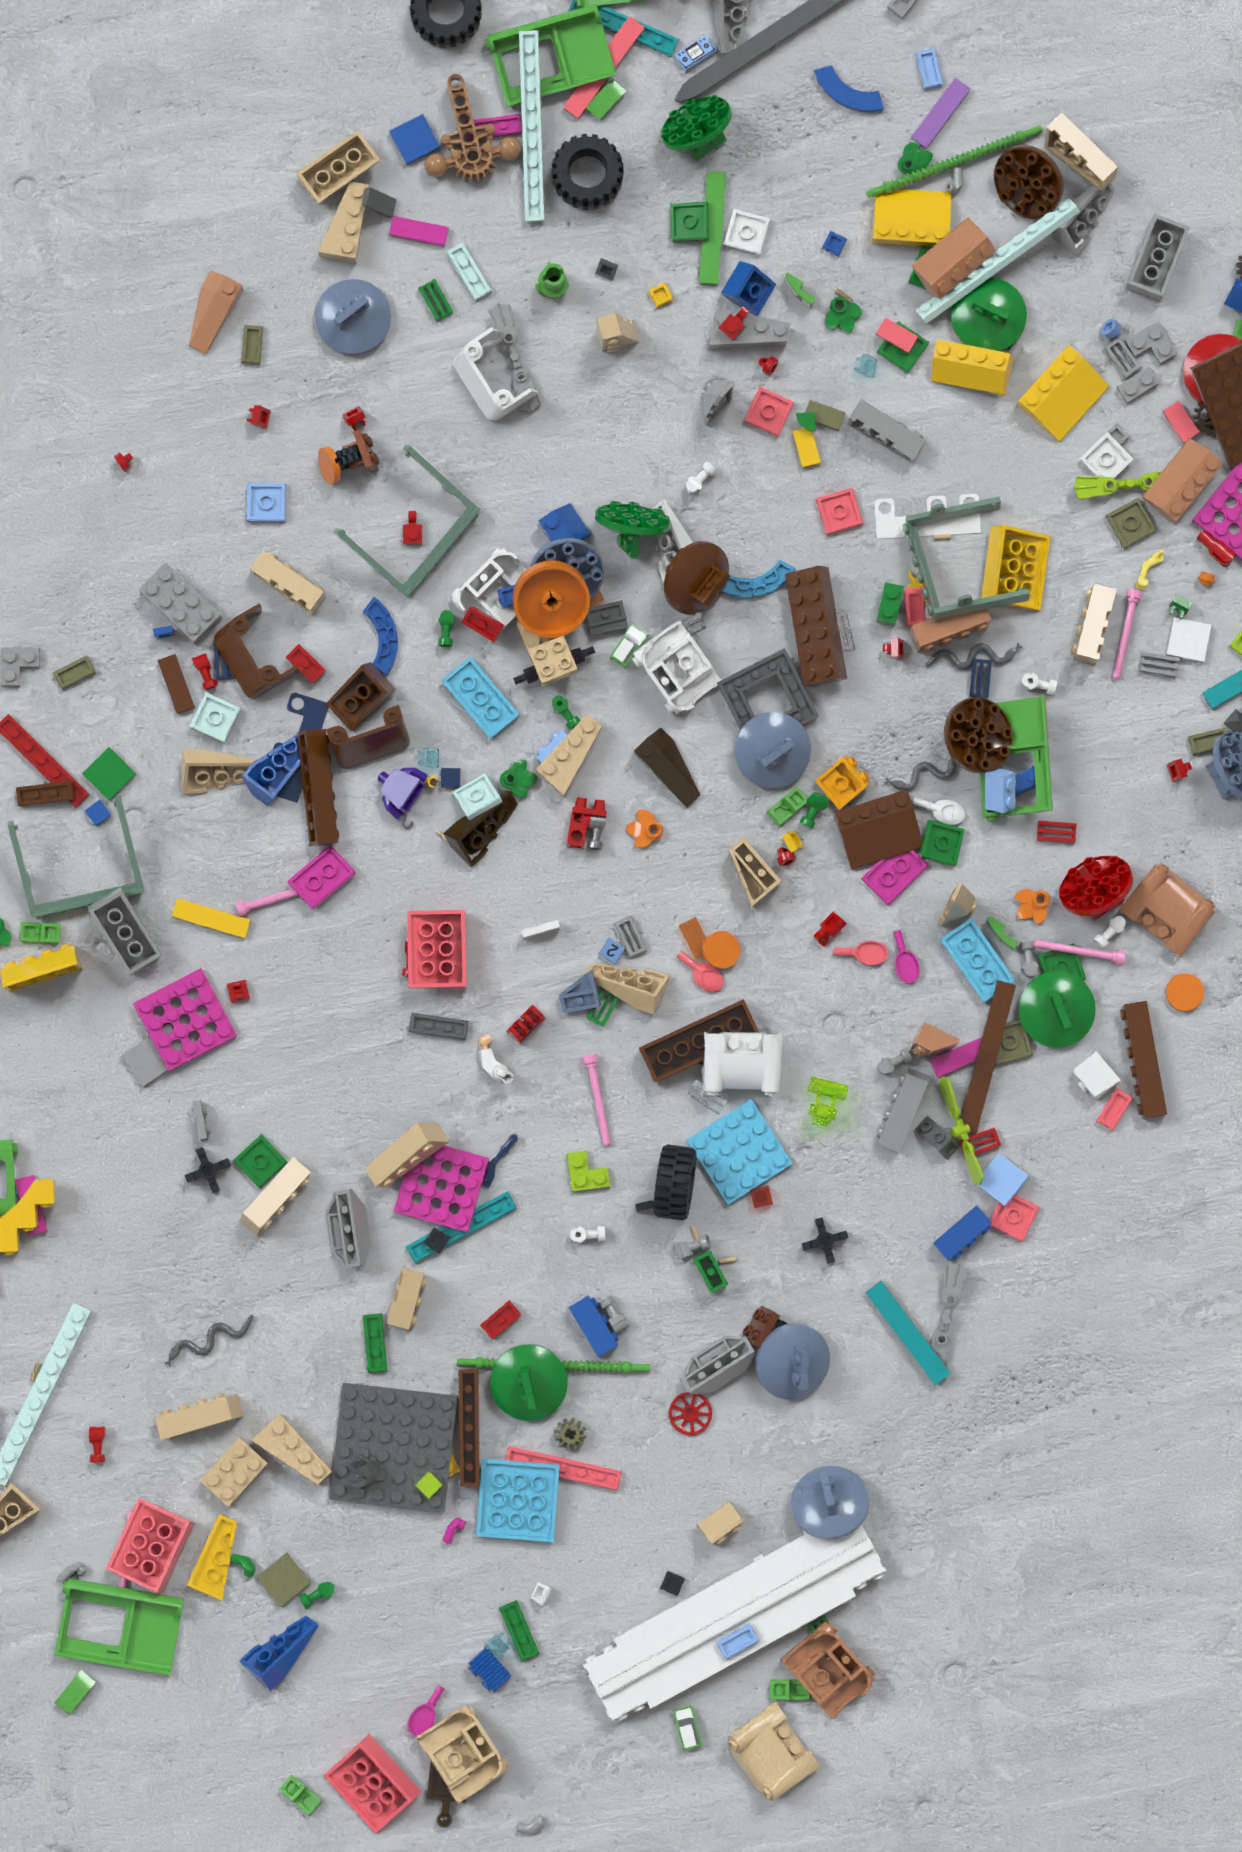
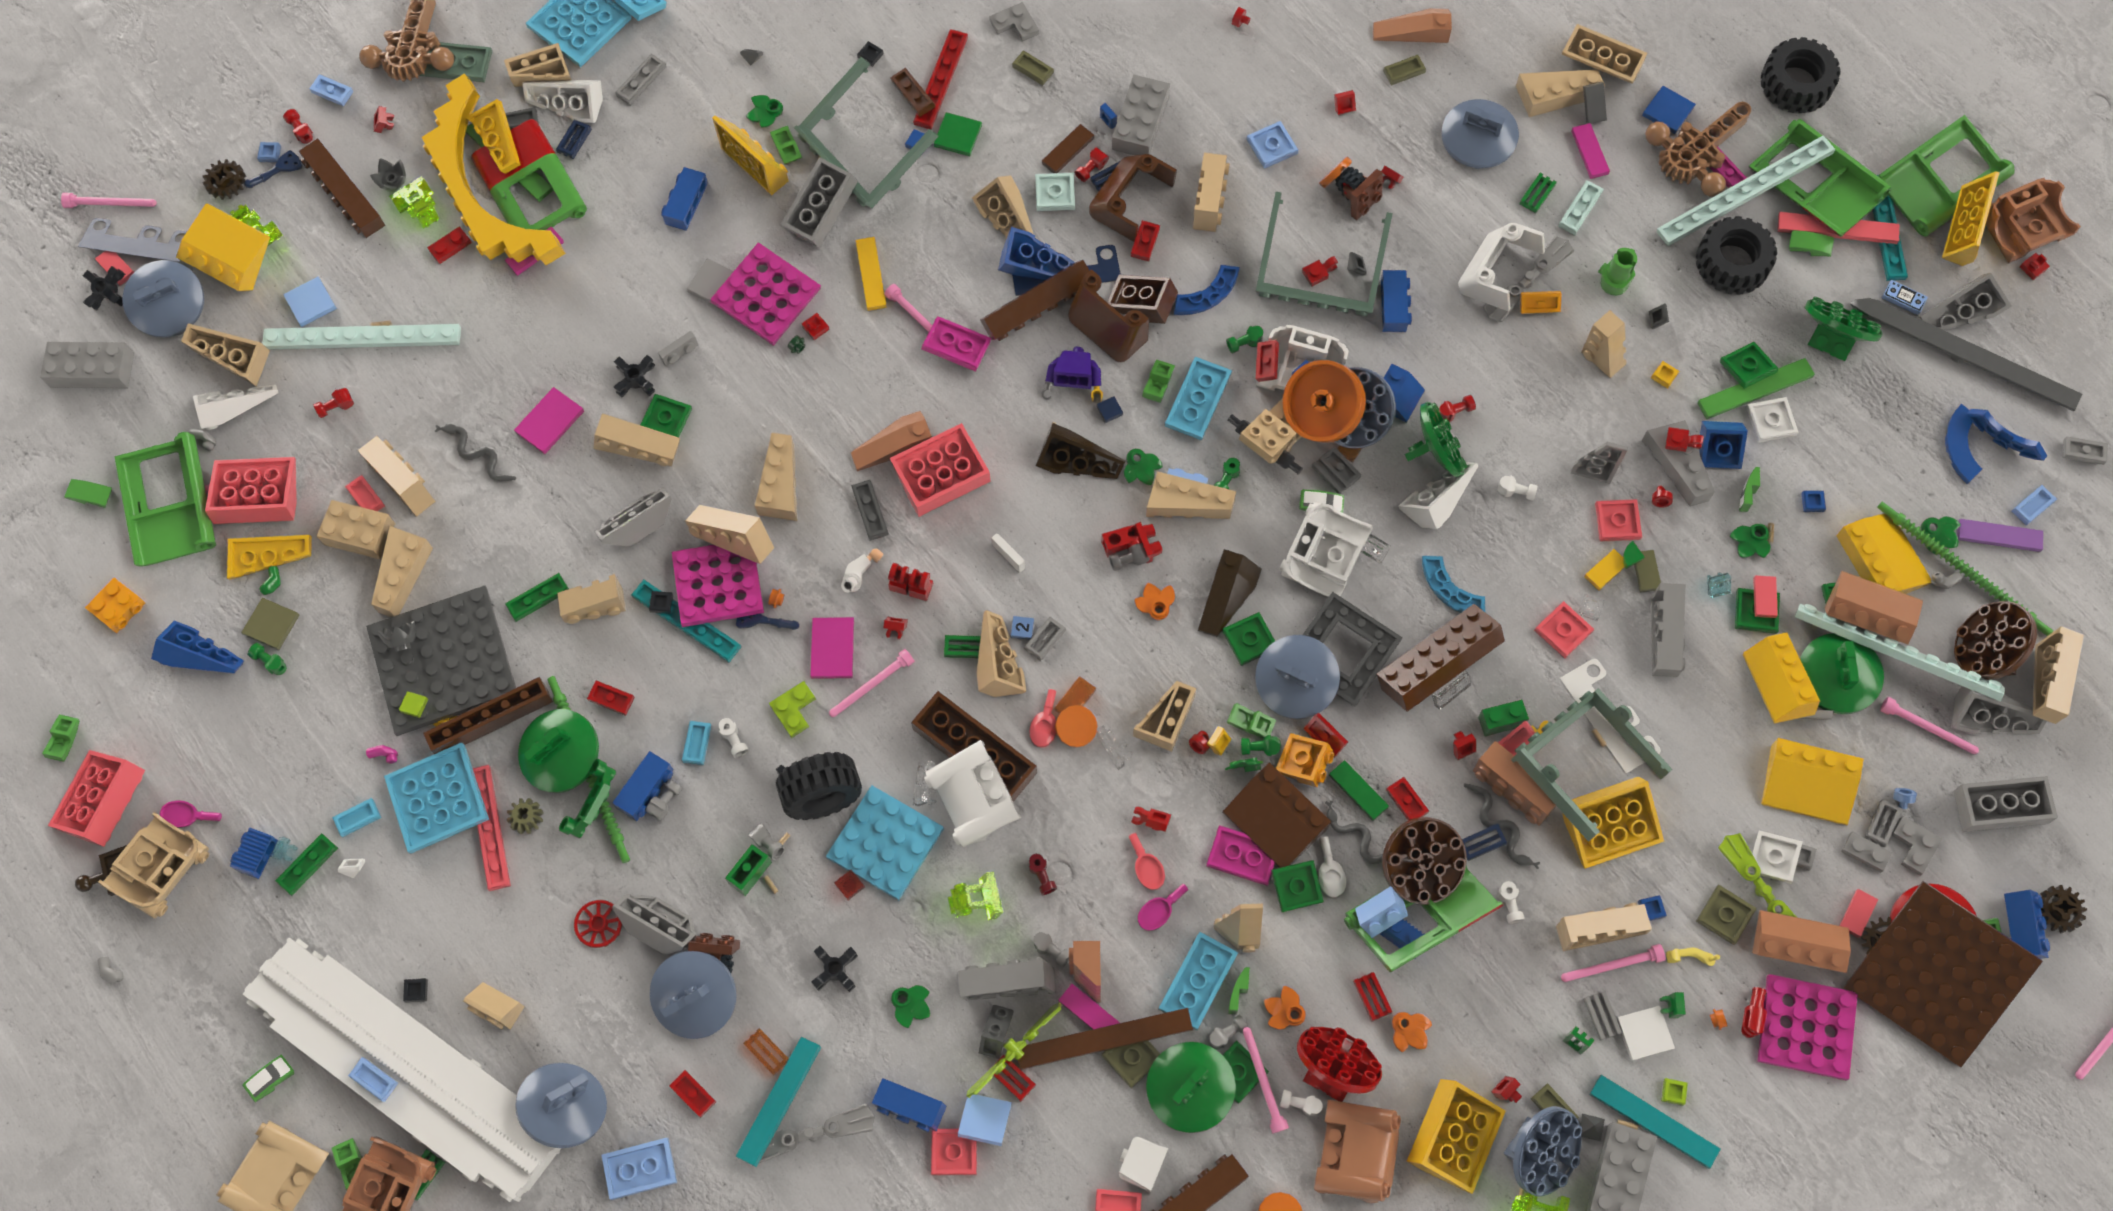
camera: 70 degrees right, 15 degrees down
(49, 1048) = (684, 198): none -> blue brick
(51, 1541) = (216, 409): none -> white wedge
(198, 1706) = (115, 605): none -> light orange plate
(201, 1452) = (364, 494): none -> coral tile
(210, 1263) = (549, 420): none -> dark pink tile
(249, 1015) = (796, 344): none -> dark green plate
(379, 1093) = (778, 482): none -> tan wedge
(384, 968) = (892, 440): none -> nougat wedge
(423, 494) = (1356, 263): none -> dark grey slope
(430, 757) = (1118, 381): clear light blue tile -> none
(445, 722) = (1158, 381): none -> bright green slope
(477, 482) = (1395, 301): none -> blue brick
(477, 796) = (1103, 437): light aqua plate -> none
(480, 1142) = (776, 598): none -> orange plate
(498, 1573) = (356, 817): none -> medium azure tile
(542, 360) = (1540, 302): none -> light orange plate
(548, 1116) = (832, 648): none -> dark pink tile
(556, 1054) = (895, 624): none -> red tile
(575, 1266) = (696, 743): none -> medium azure tile
(581, 994) = (964, 617): sand blue wing -> none
(590, 1372) = (590, 808): none -> green plate
(601, 493) = (1448, 410): none -> red leg
(696, 577) = (1421, 522): reddish brown bracket -> none
(716, 769) = (1248, 638): none -> green tile
(822, 1039) = (1038, 867): none -> dark red leg
(825, 827) = (1249, 764): none -> green plate
(830, 753) = (1323, 731): none -> red plate
(847, 1330) = (753, 1038): none -> clear orange tile
(863, 55) = (2028, 448): none -> blue tile
(868, 1397) = (692, 1093): none -> red plate
(884, 1192) = (913, 1007): none -> green plate
(888, 752) = (1358, 790): none -> green tile
(906, 1464) = (639, 1168): none -> light blue plate
(917, 718) = (1407, 799): none -> red plate
(1035, 293) = (1891, 707): none -> bright pink piece
(1097, 576) = (1654, 907): none -> blue tile
(1100, 817) = (1413, 1033): none -> orange plate
(1171, 695) = (1579, 1038): none -> green tile
(1193, 827) = (1456, 1135): none -> yellow slope

